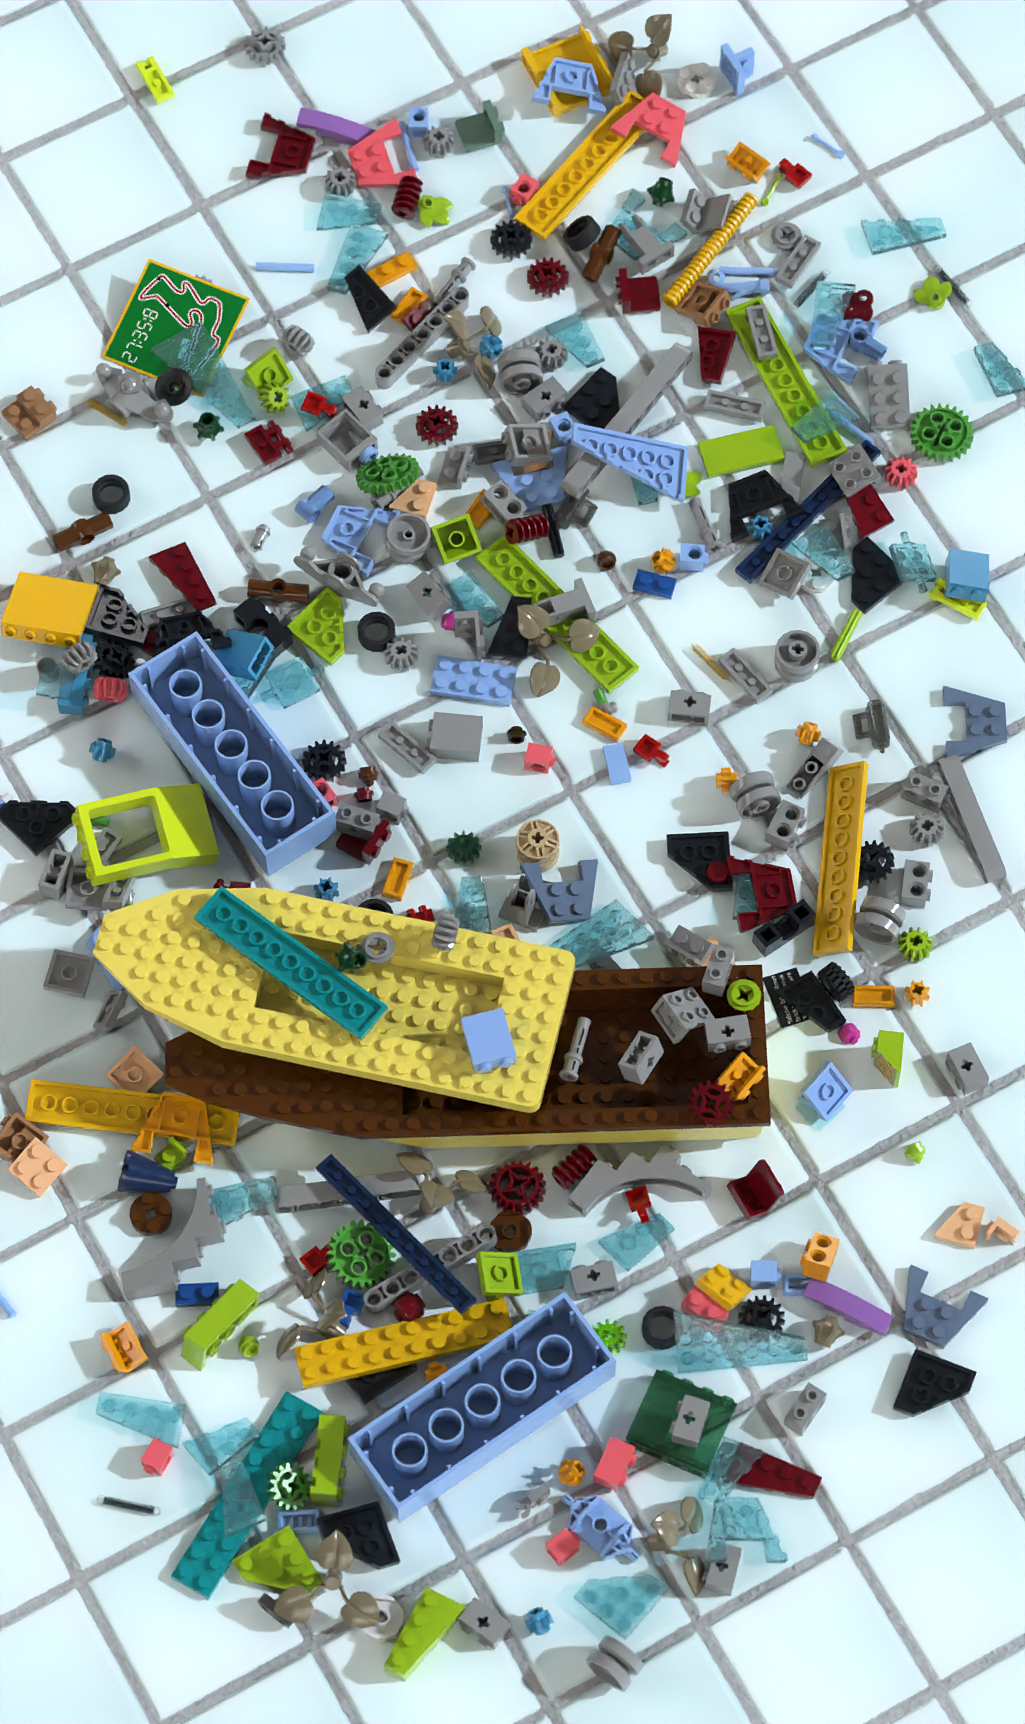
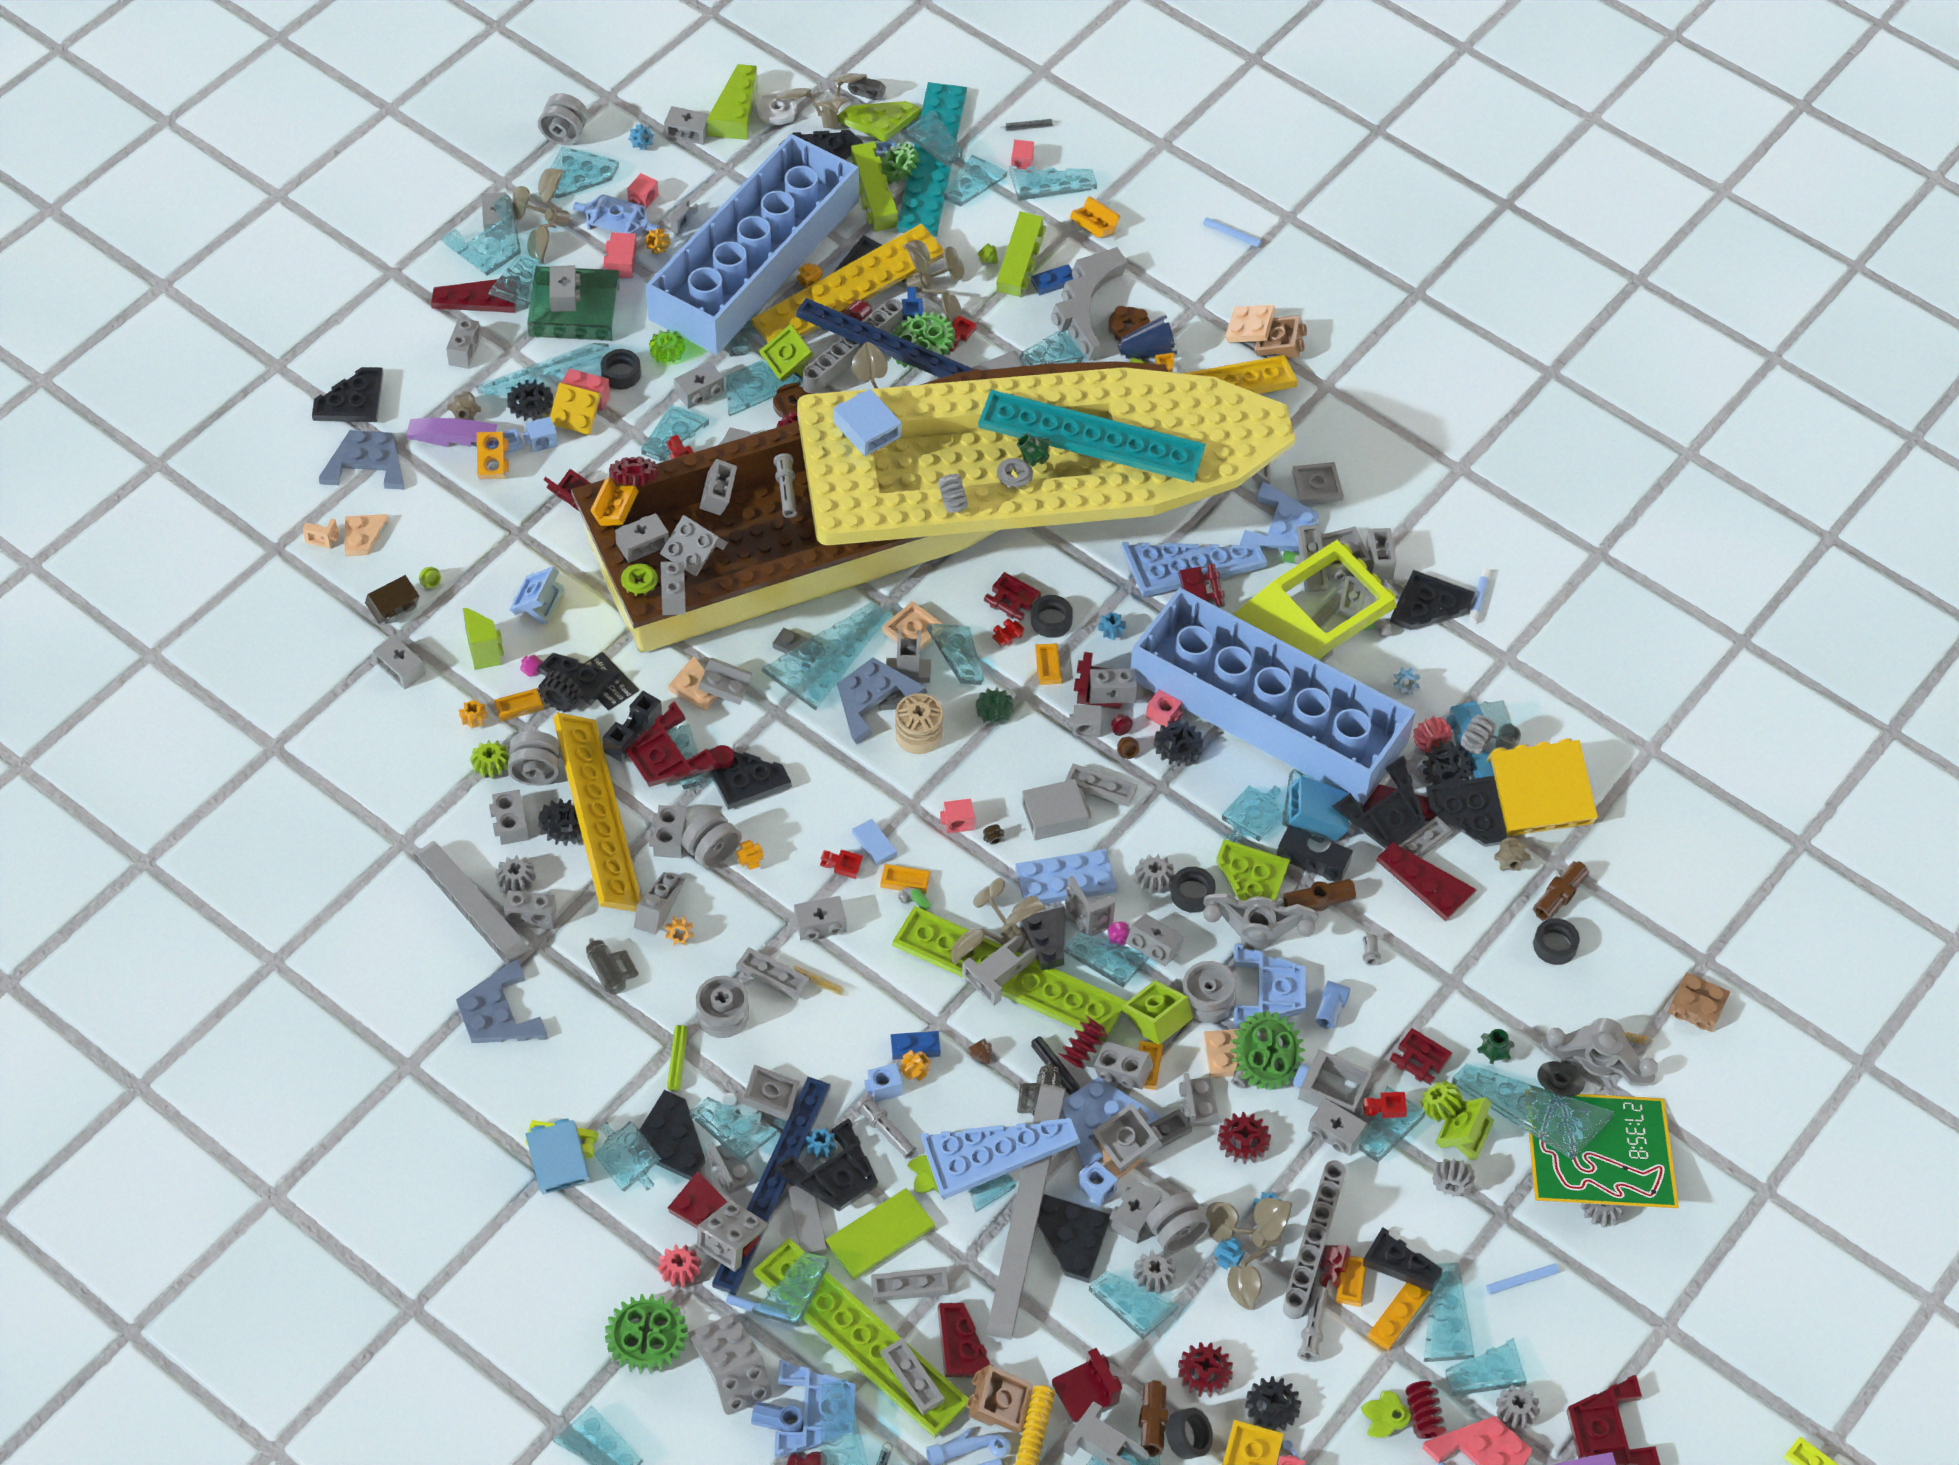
camera: 155 degrees right, 10 degrees down
(956, 1131) = (392, 599): none -> dark brown brick

